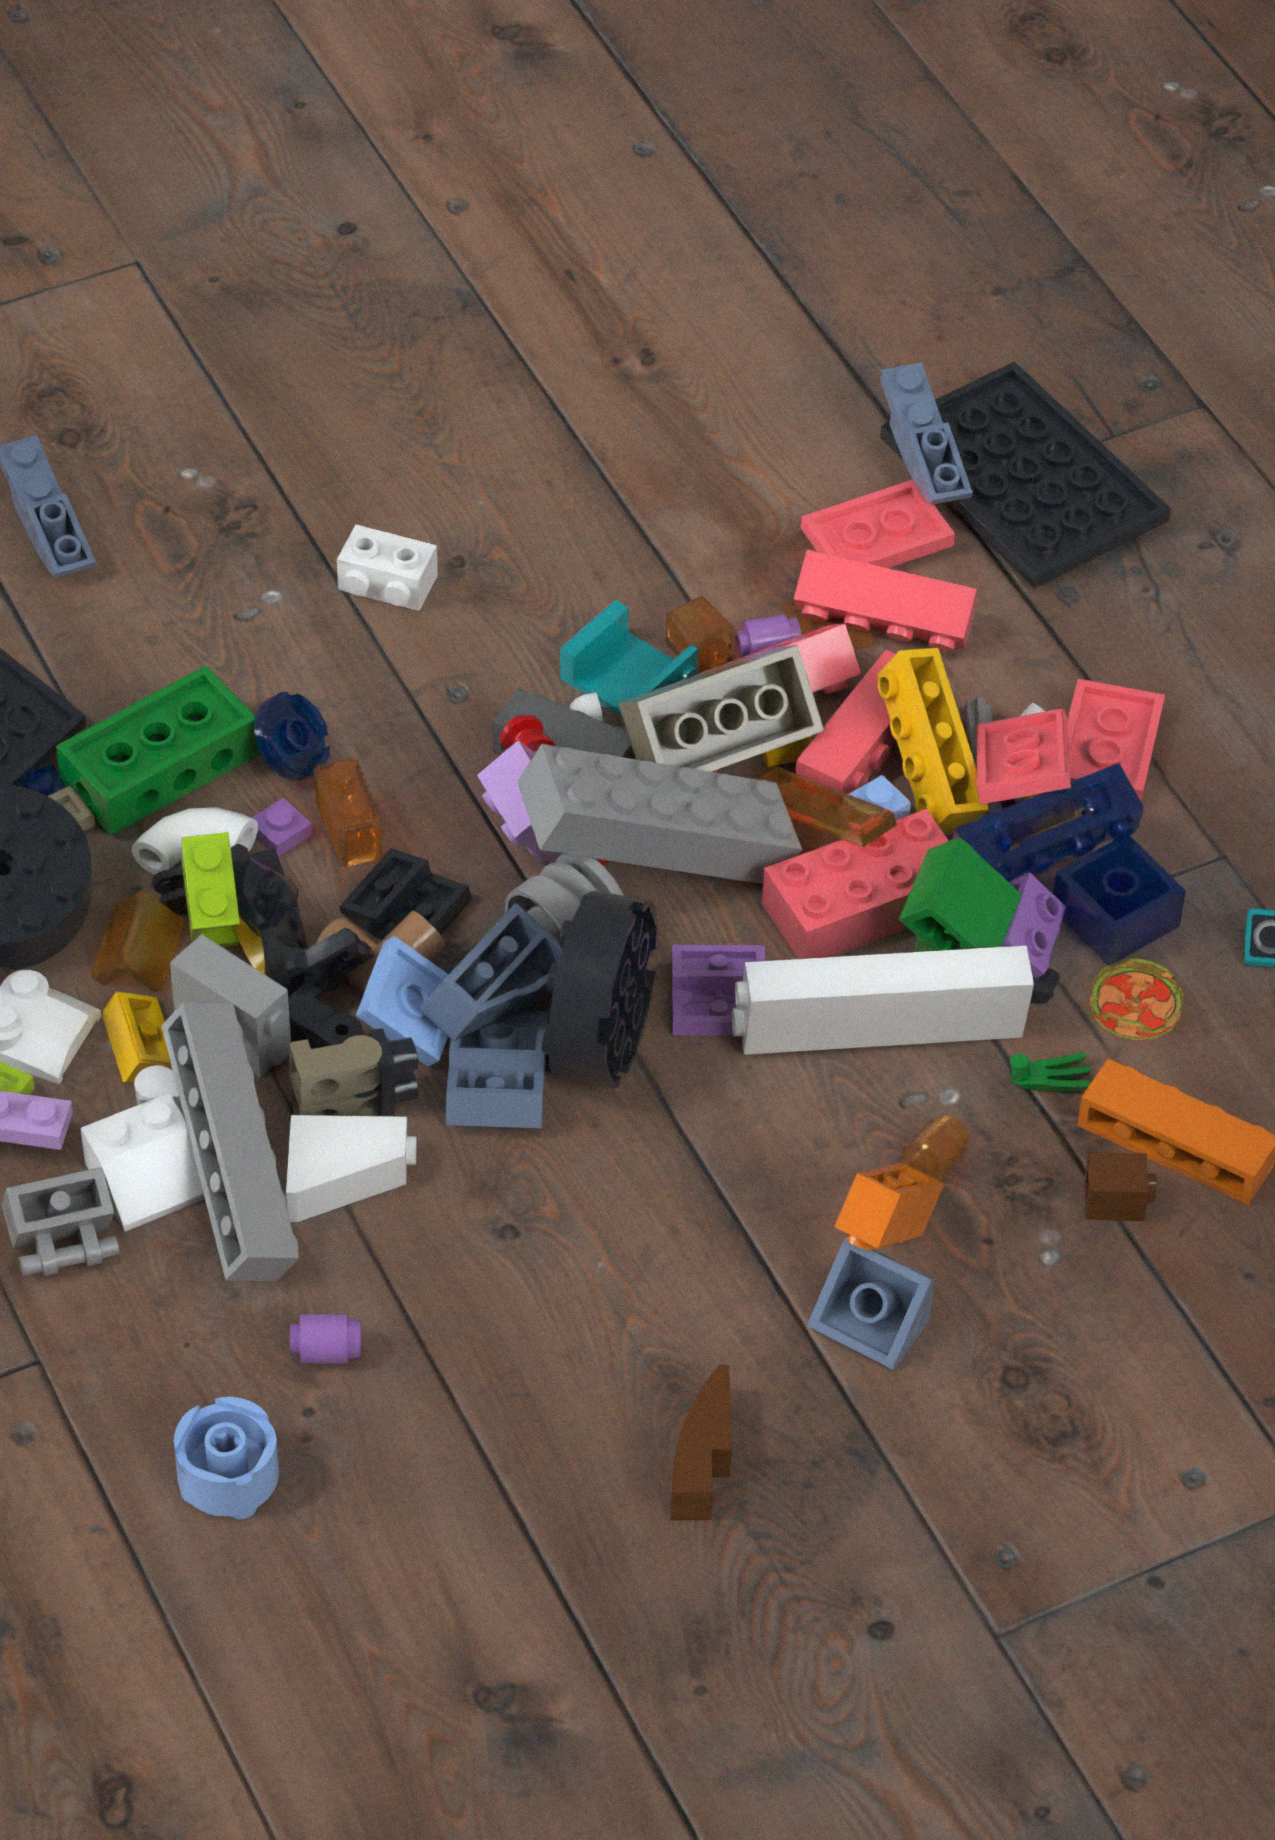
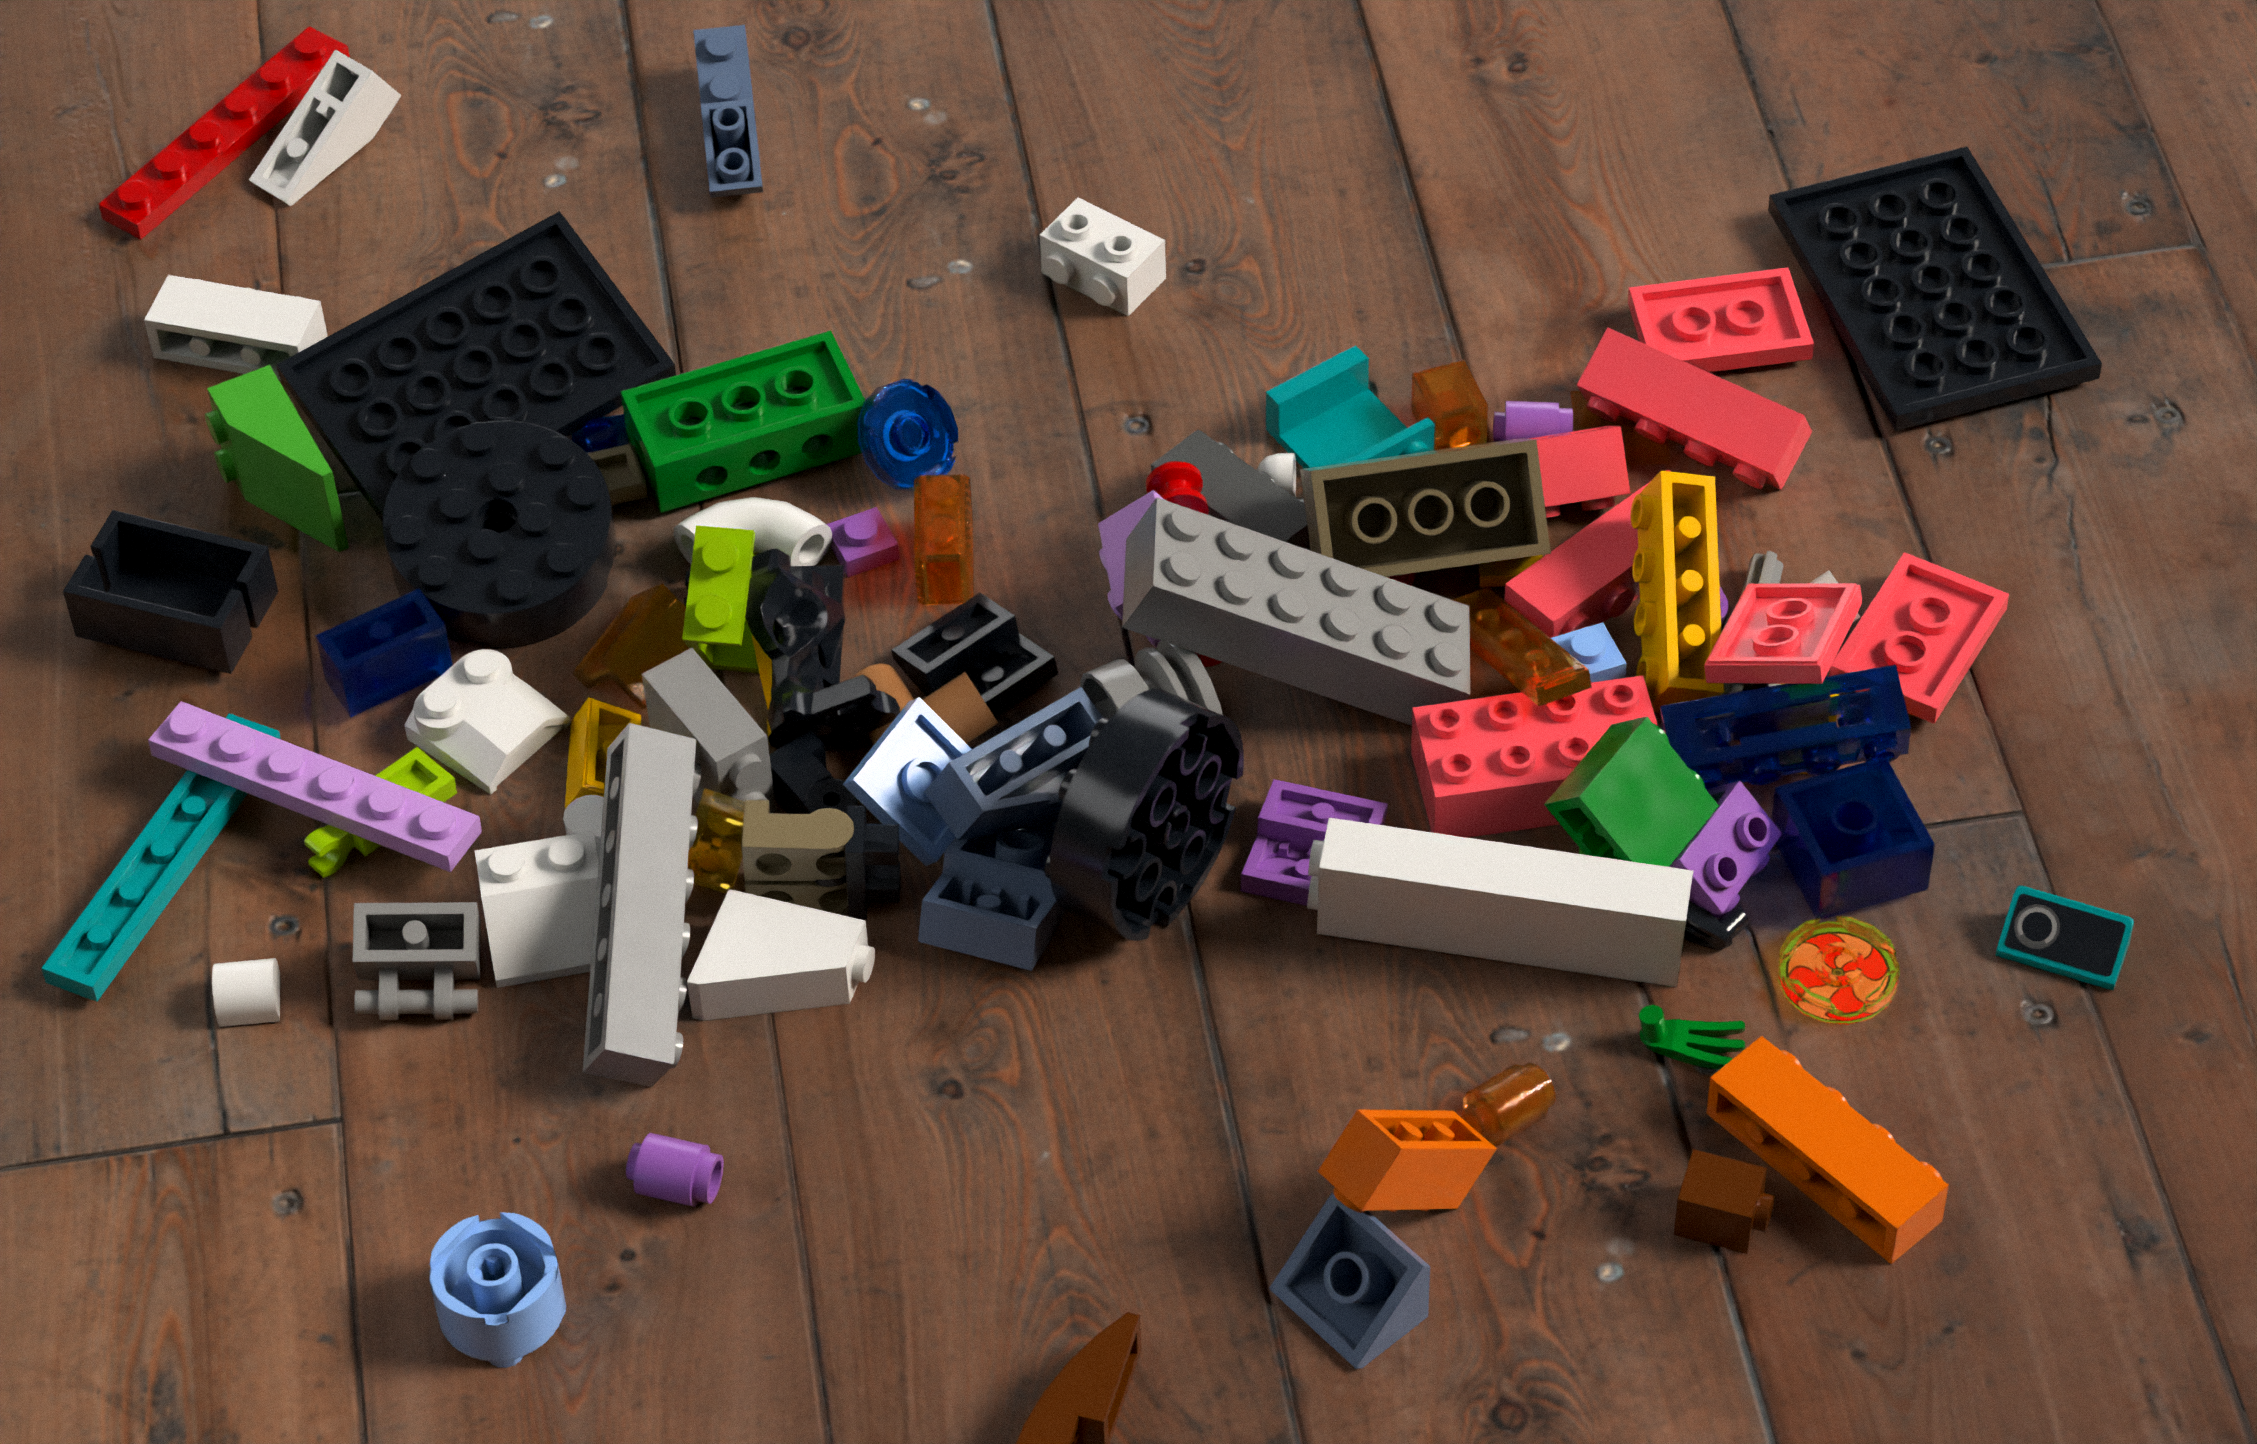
camera: 20 degrees right, 0 degrees up
(271, 1076) = (718, 841): none -> clear yellow bracket
(922, 436) = (1811, 214): sand blue slope -> none

